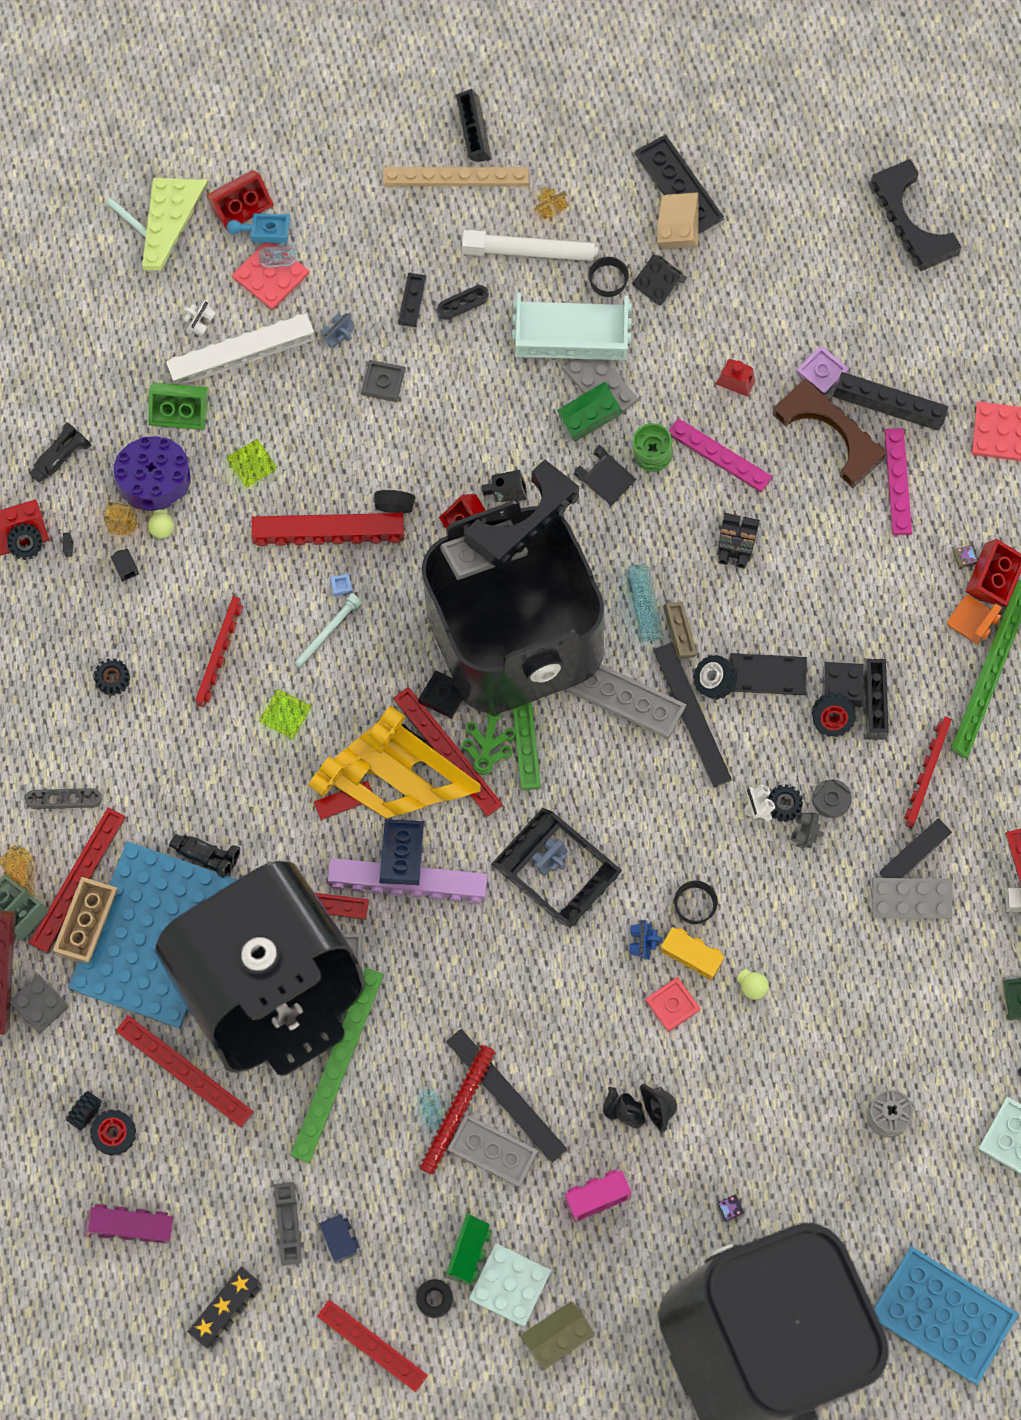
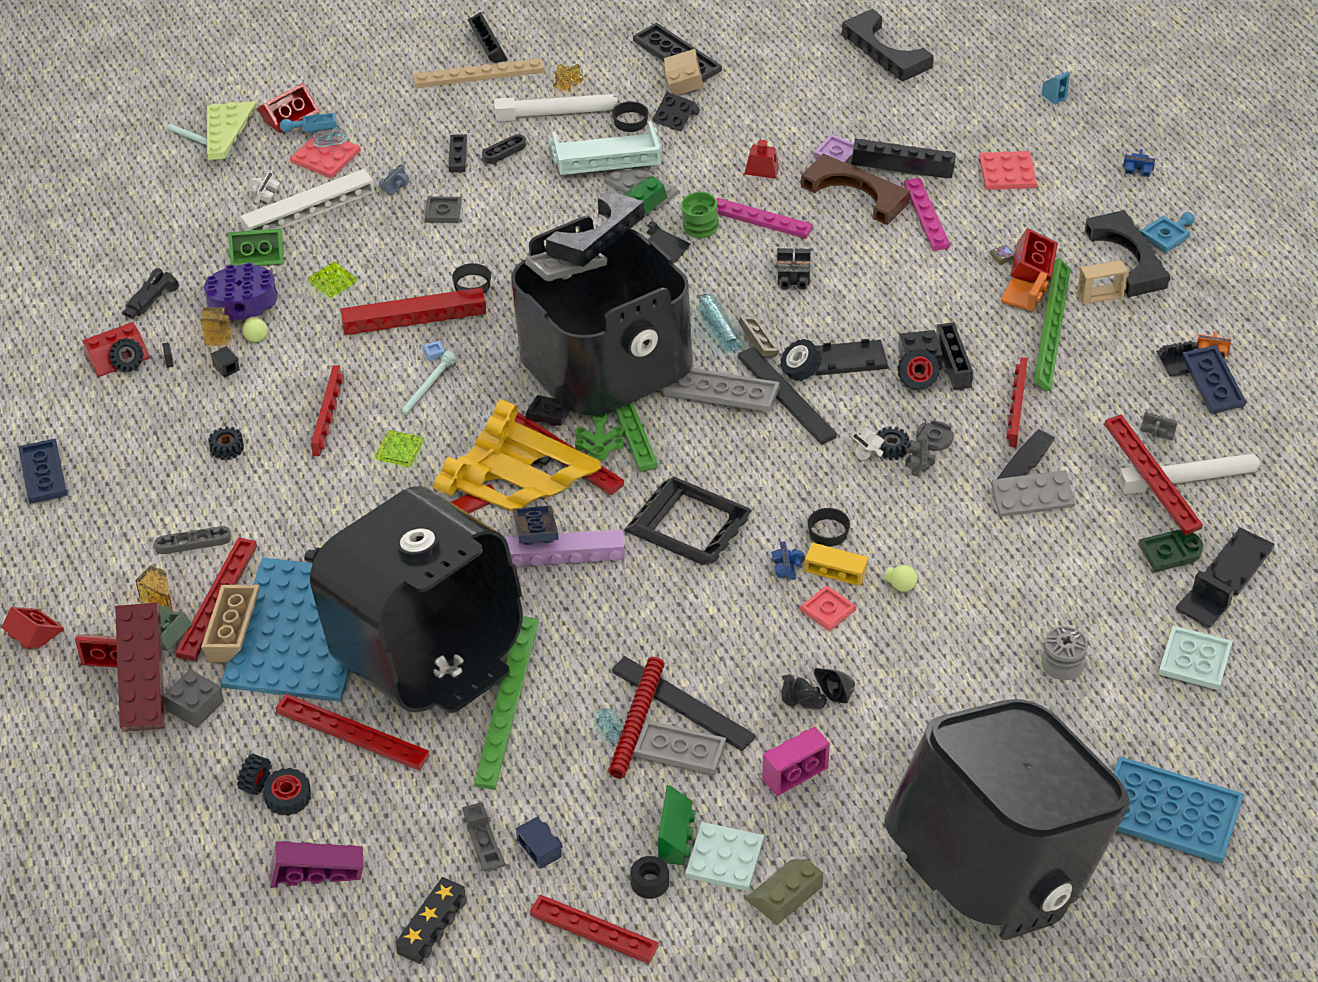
camera: 10 degrees left, 25 degrees down
(552, 859) = (681, 512): sand blue hips -> none

